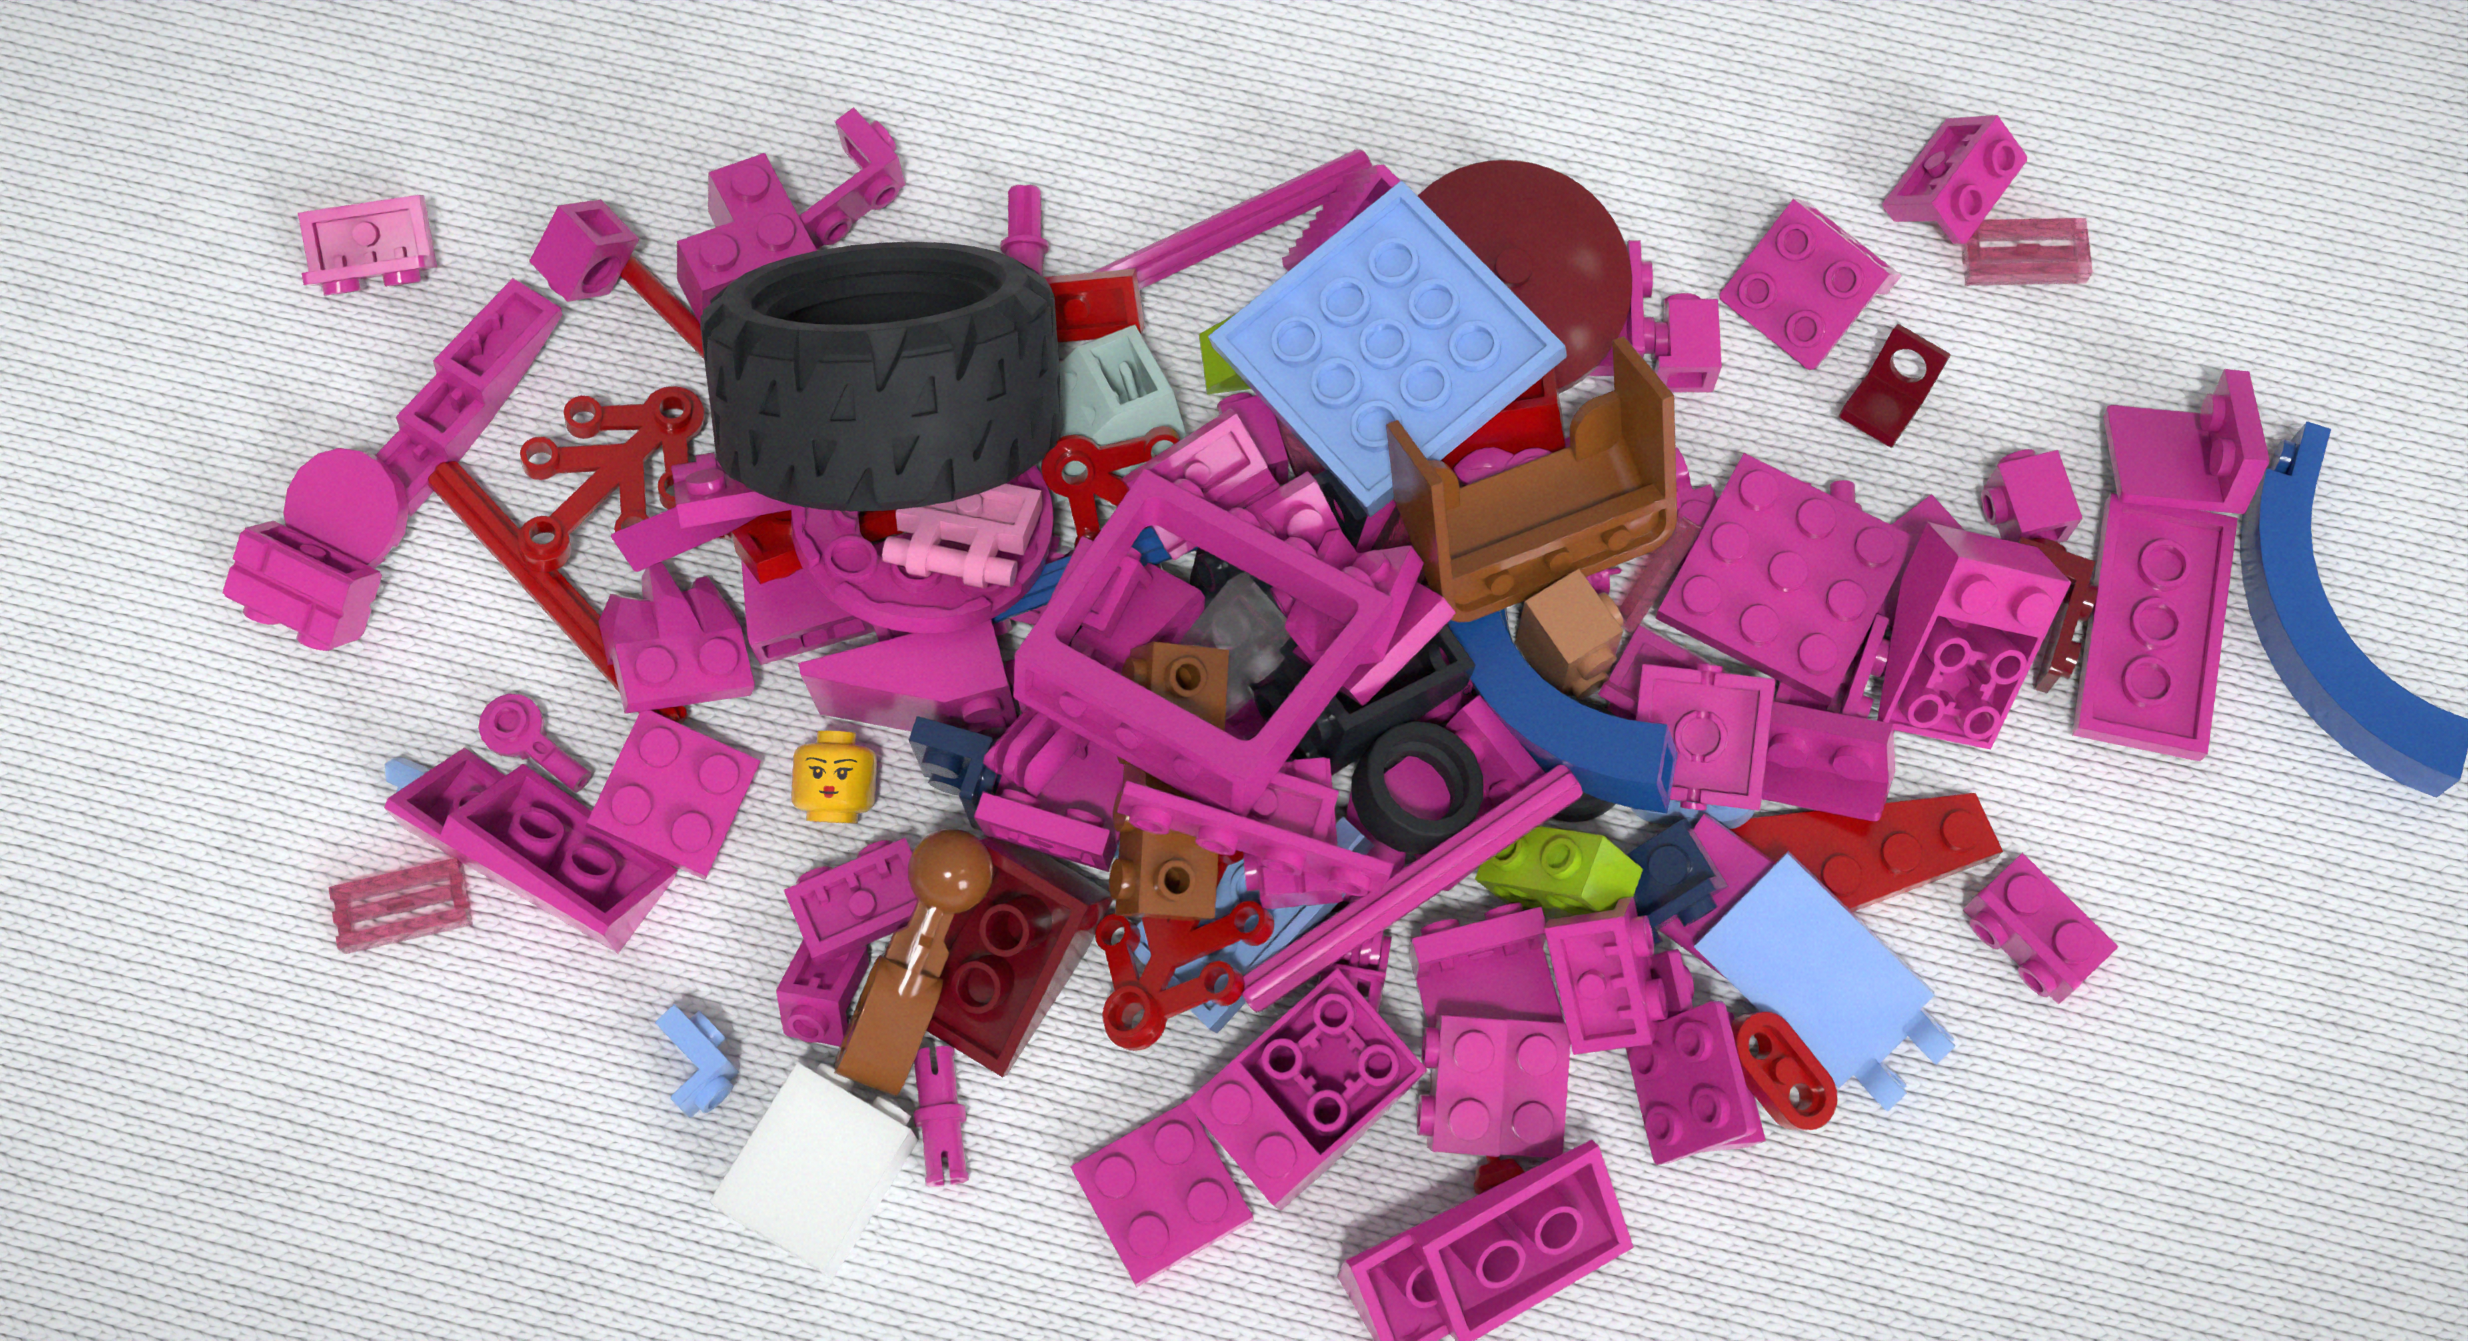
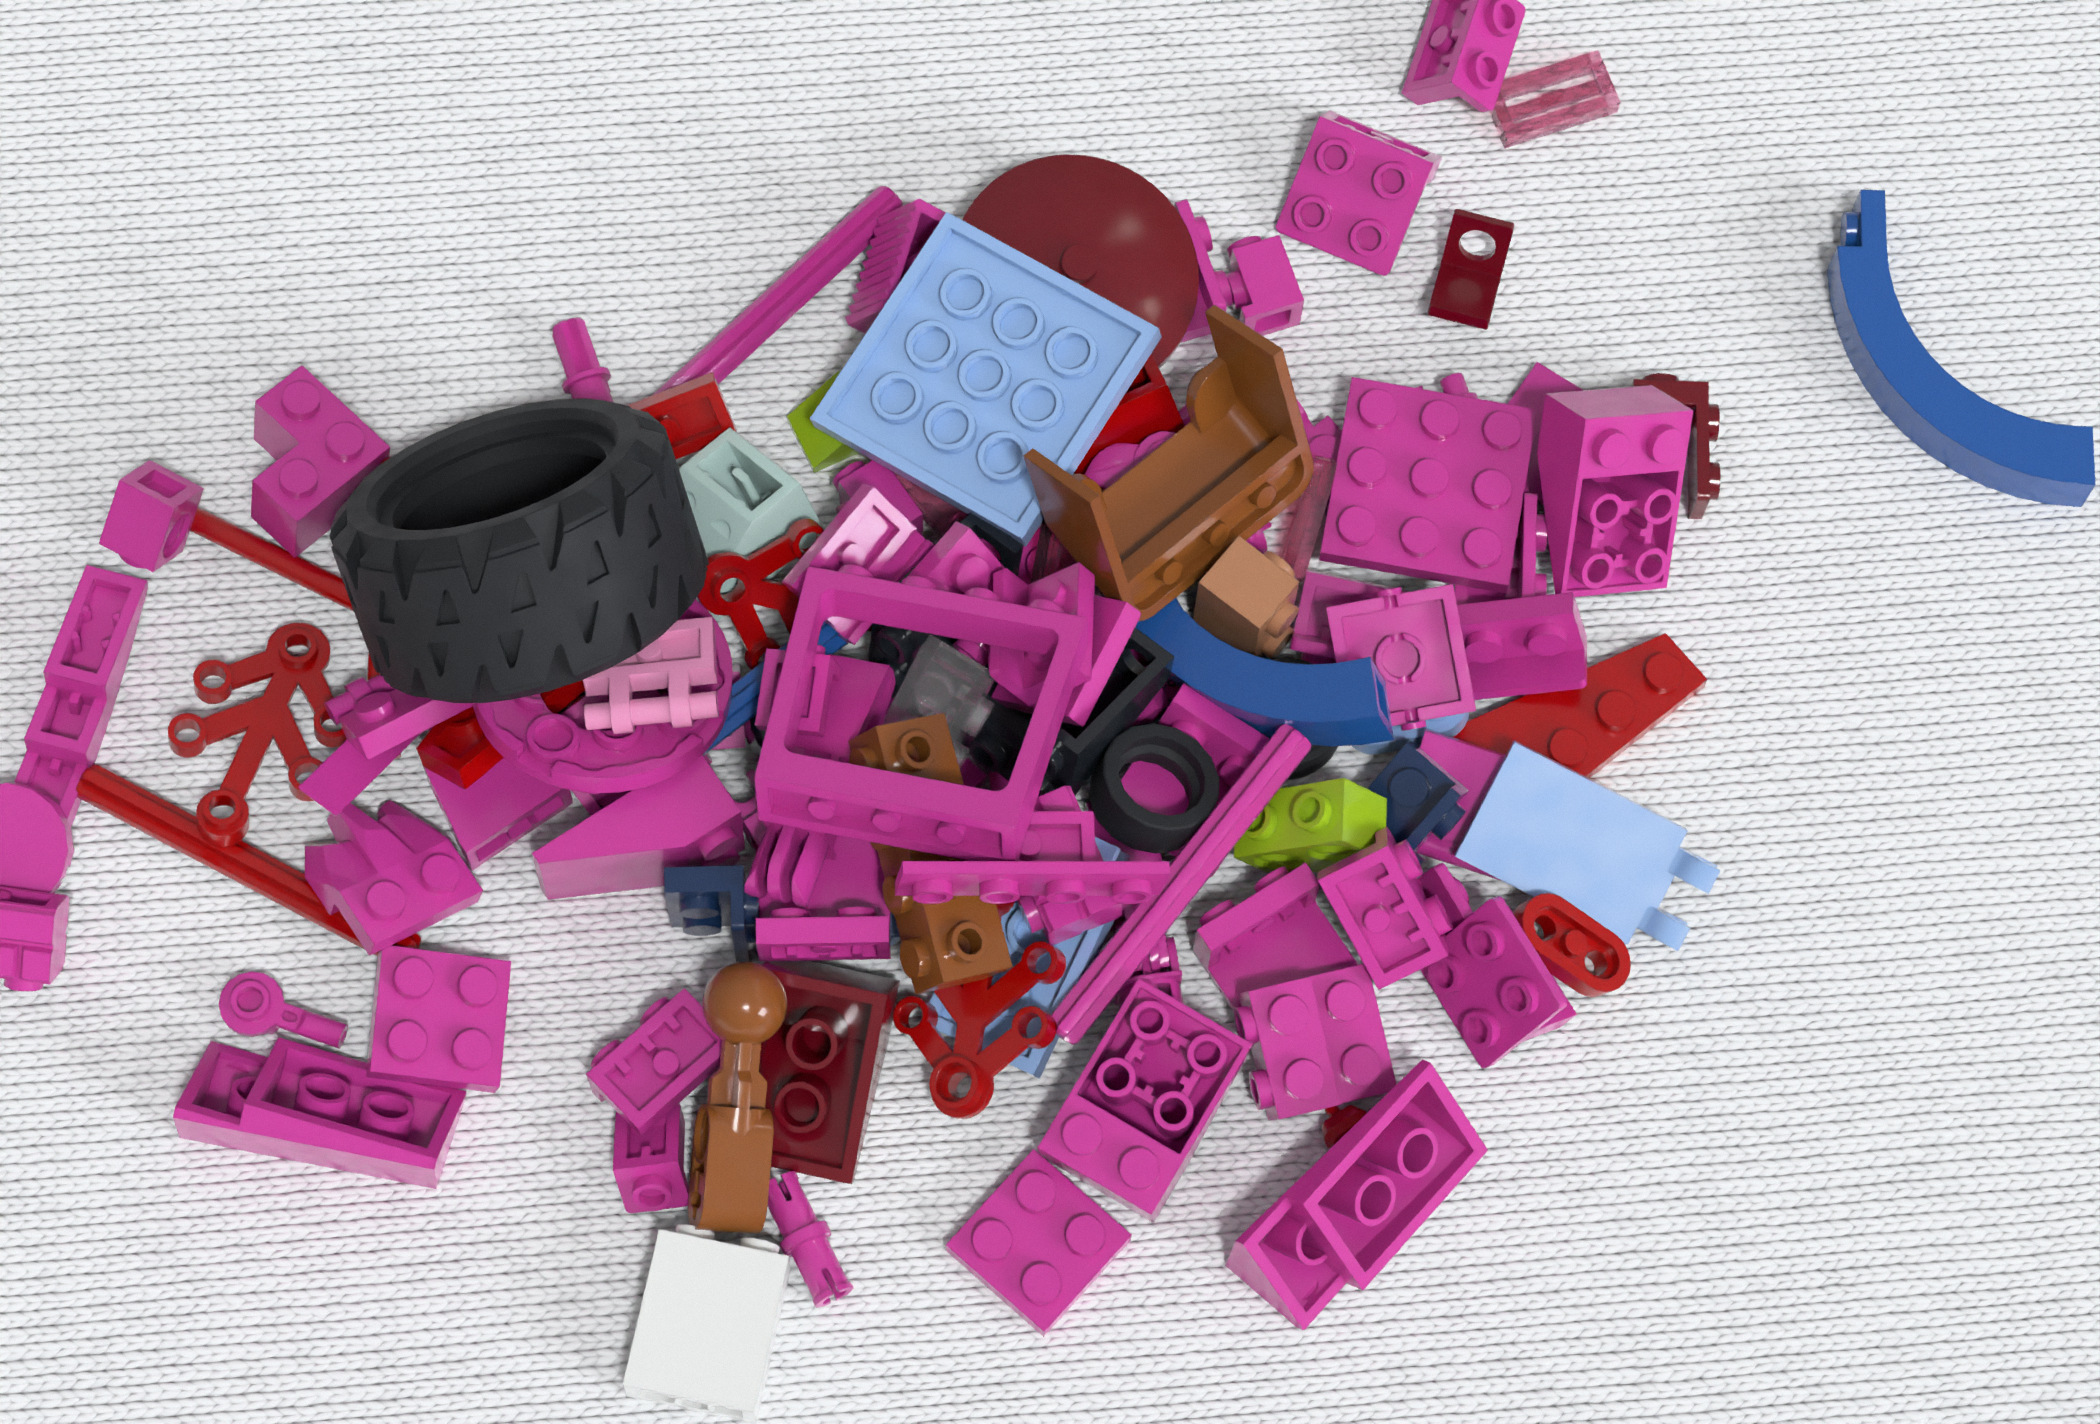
camera: 25 degrees left, 0 degrees up
(346, 916) = (195, 1189): clear pink tile -> none
(402, 772) = (167, 1086): light blue rock -> none
(699, 1042) = (553, 1246): light blue bracket -> none
(834, 778) = (590, 955): yellow head -> none
(869, 189) = (404, 333): dark pink bracket -> none
(2031, 497) = (1630, 338): dark pink brick -> none
(2039, 930) = (1762, 741): dark pink bracket -> none
(2156, 628) = (1781, 425): dark pink plate -> none
(2189, 457) = (1765, 253): dark pink bracket -> none

